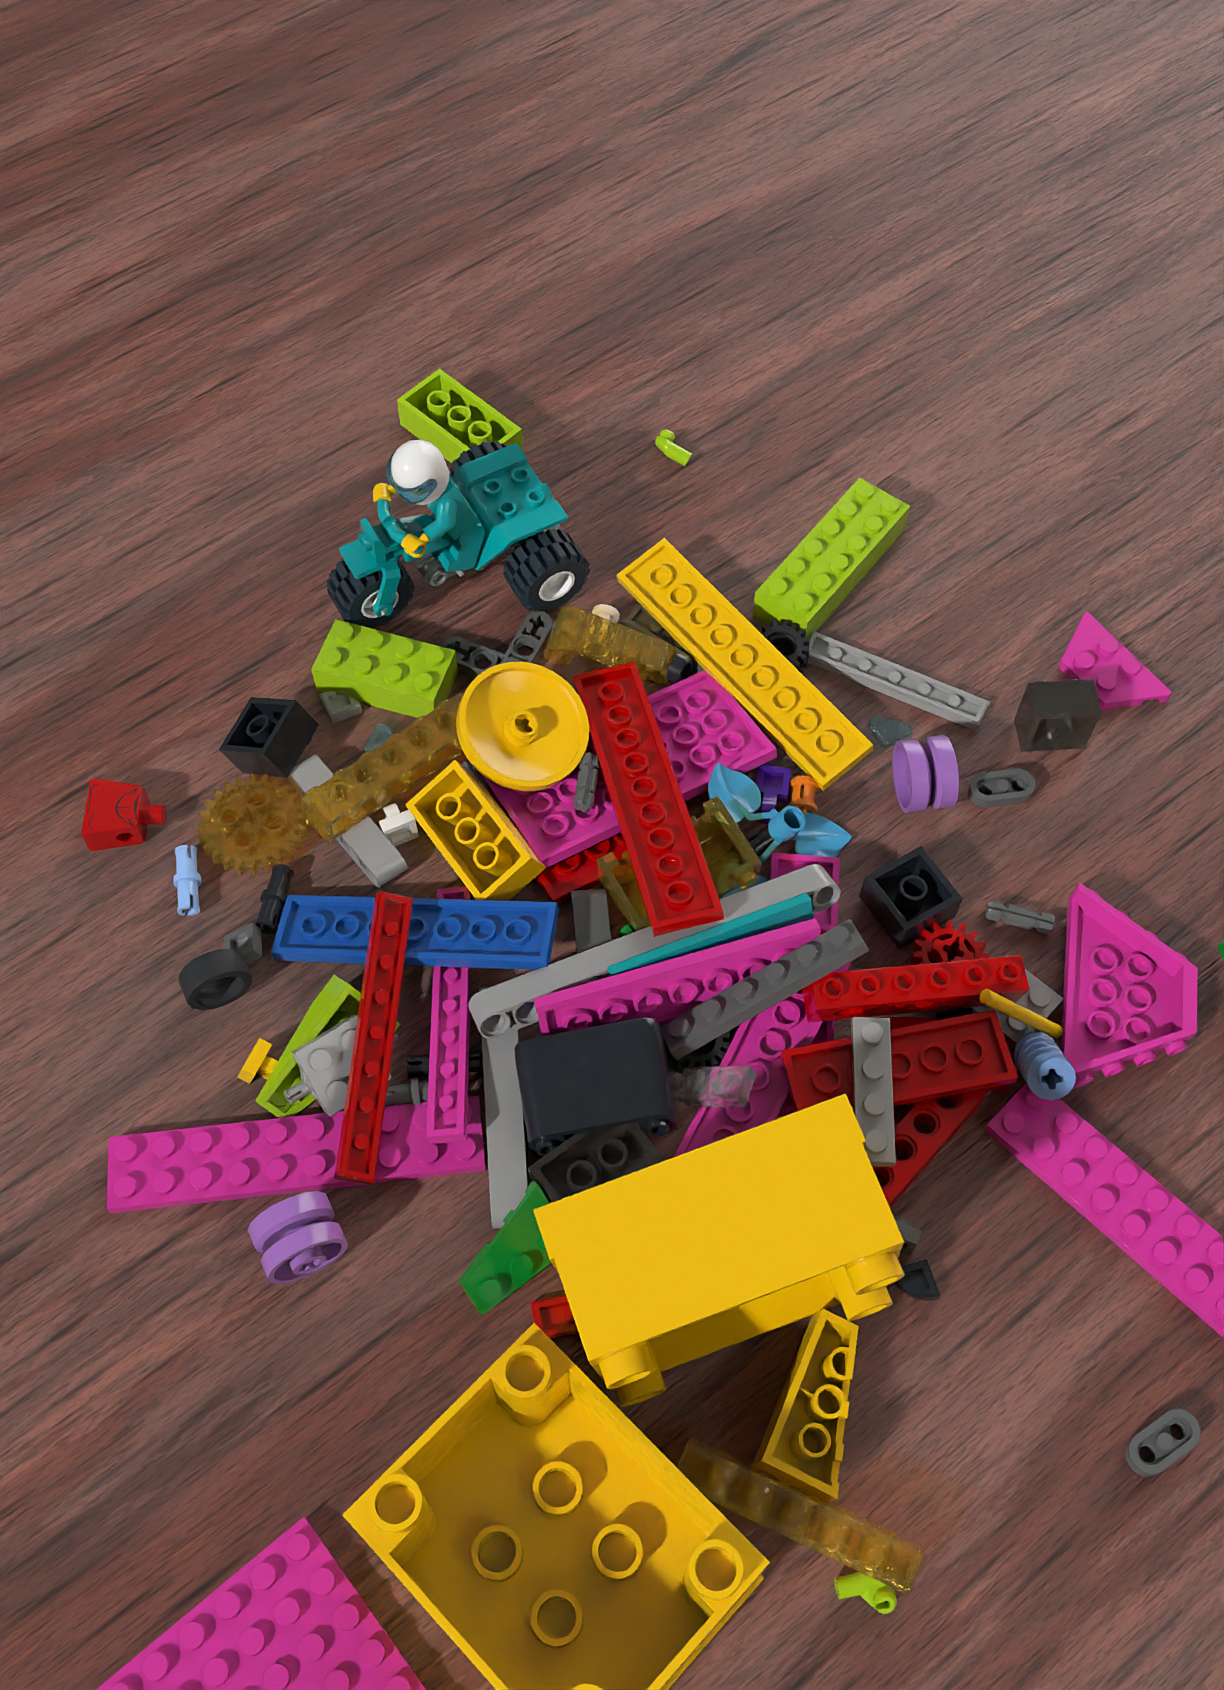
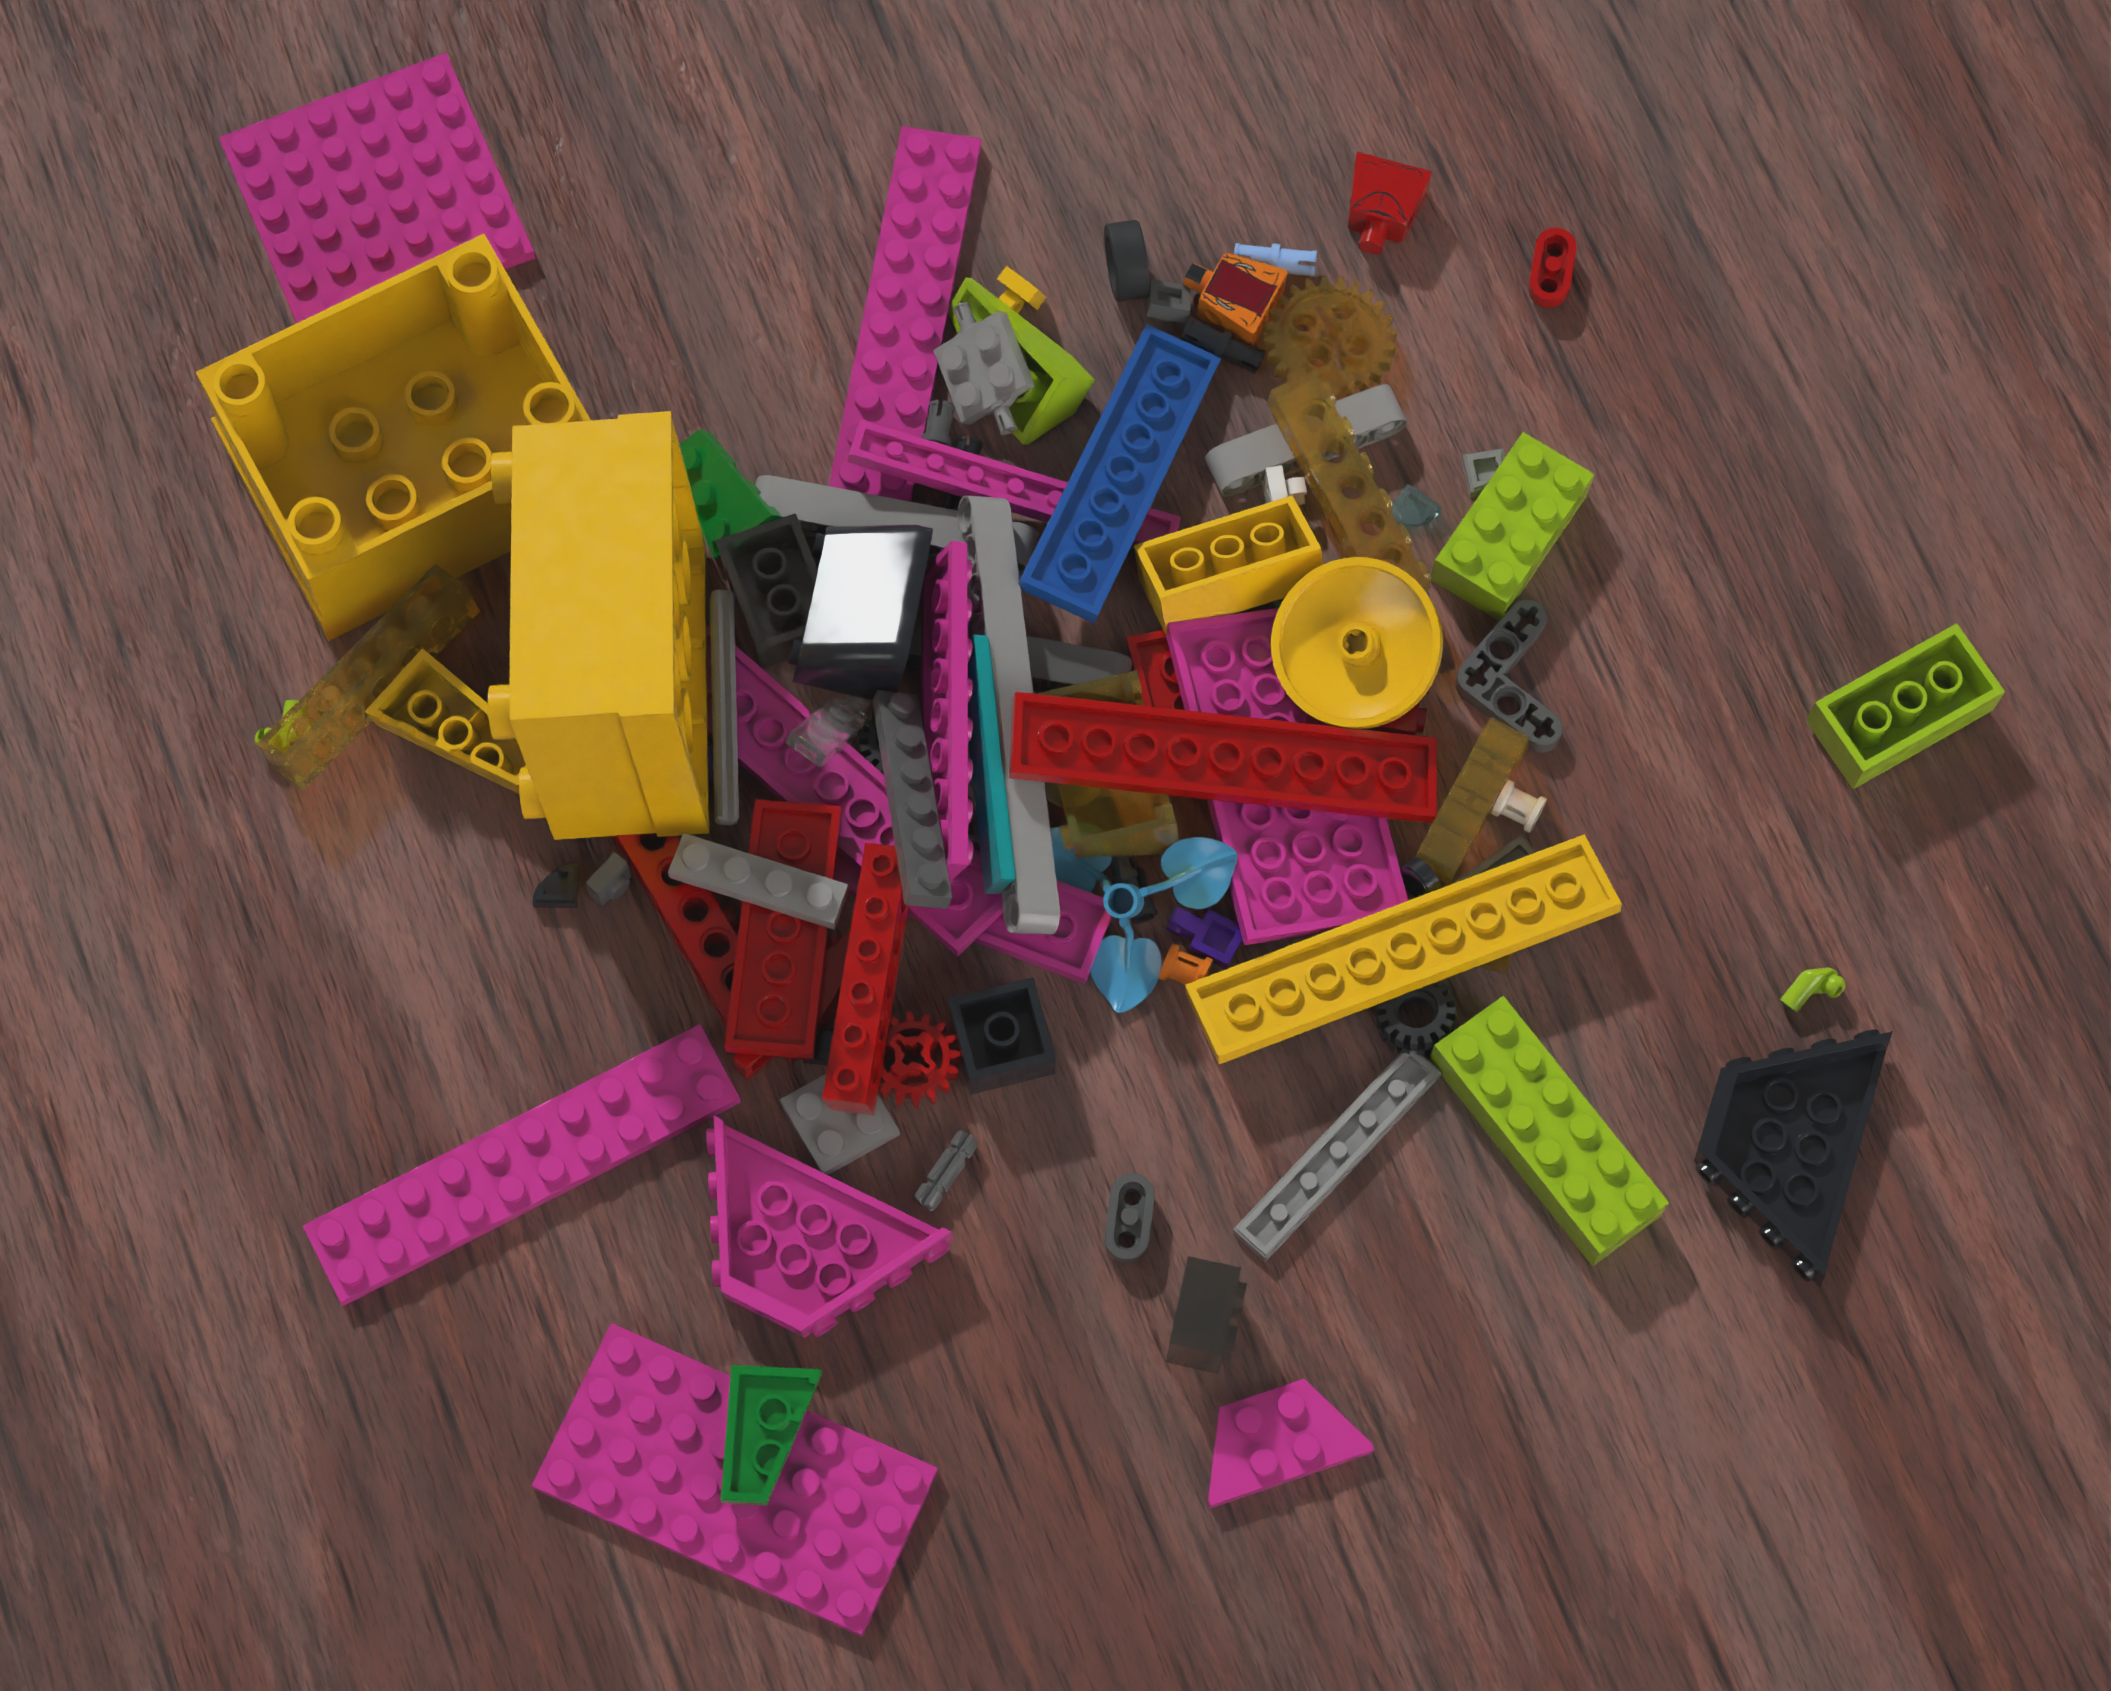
camera: 105 degrees right, 10 degrees up
(157, 693) = (1552, 270): none -> red plate
(228, 895) = (1237, 294): none -> torso
(269, 737) = (1436, 368): black brick -> none
(297, 1237) = (799, 285): medium lavender wheel -> none
(374, 1039) = (1000, 397): red tile -> none
(479, 512) = (1688, 695): piece -> none
(586, 783) = (1260, 702): dark grey axle -> none
(781, 442) = (1789, 1138): none -> black piece
(888, 731) = (1260, 1116): clear light blue tile -> none
(925, 774) = (1162, 1111): medium lavender wheel -> none
(1020, 1013) = (805, 1094): yellow bar -> none
(1044, 1066) = (739, 1098): medium blue piece -> none
(1160, 1443) = (307, 1066): dark grey plate -> none

